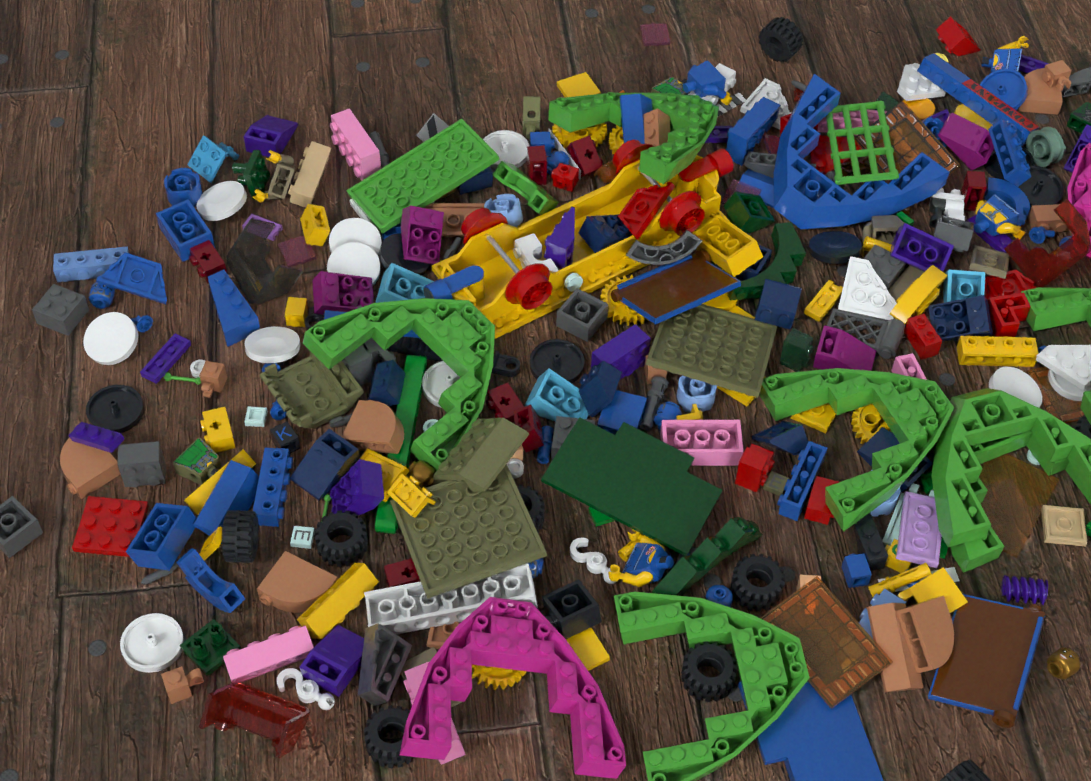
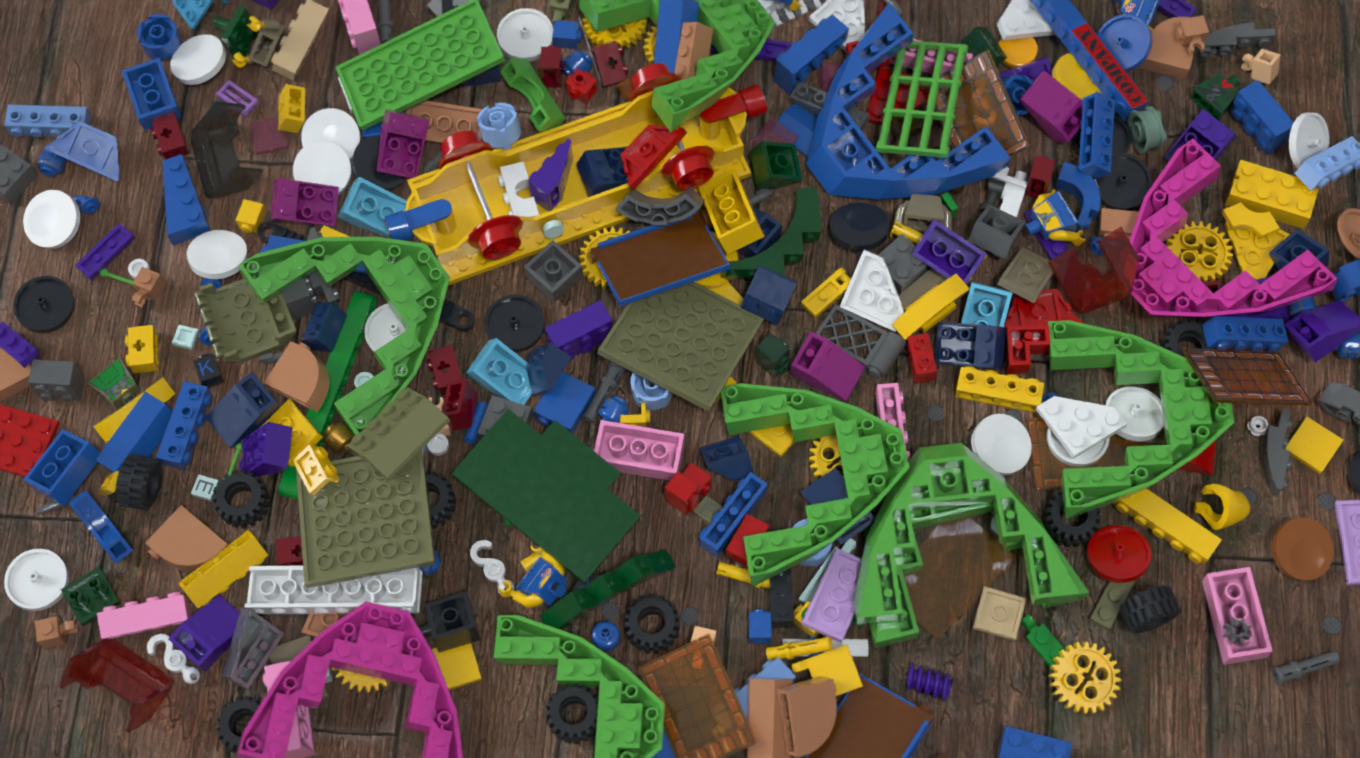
camera: 15 degrees right, 15 degrees up
(827, 530) = (739, 574): none -> yellow pin

